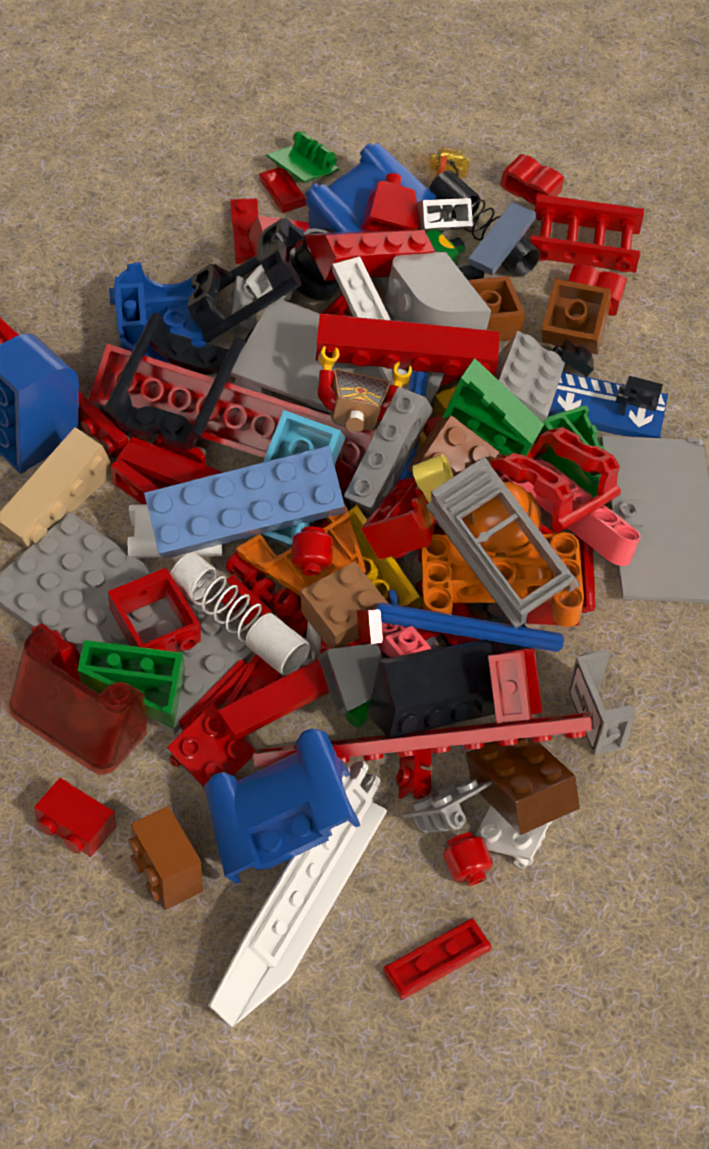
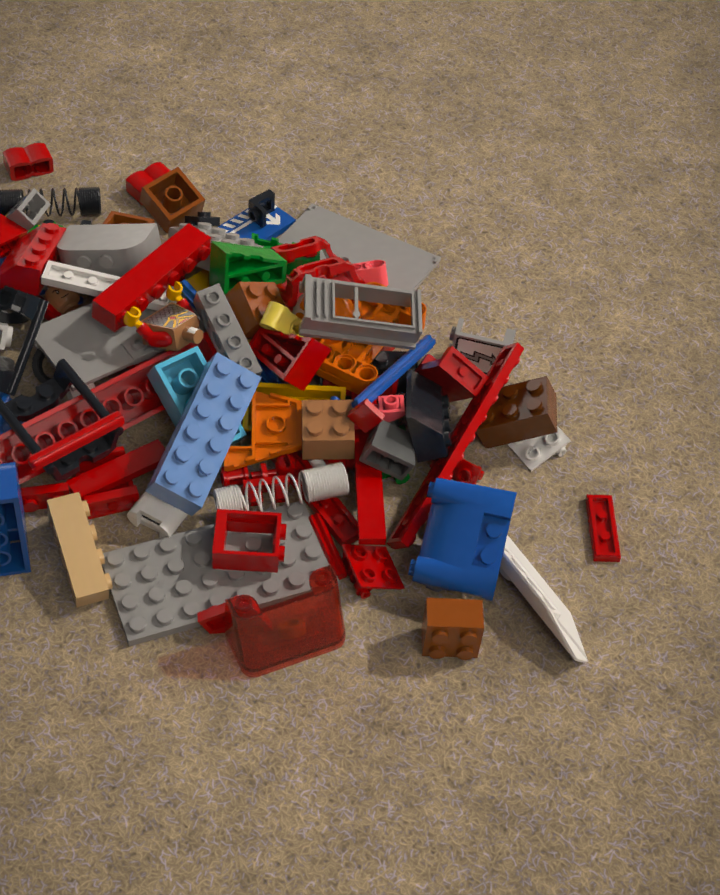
camera: 60 degrees left, 5 degrees down
(74, 818) = (376, 672): red brick -> none
(150, 405) = (76, 440): none -> red axle
(150, 671) = (292, 569): green wedge -> none
(312, 551) = (272, 419): red head -> none
(443, 810) = (507, 460): light grey hinge -> none
(467, 859) = (545, 473): red head -> none
(502, 238) = (78, 195): sand blue tile -> none
(592, 215) = (96, 146): red fence -> none

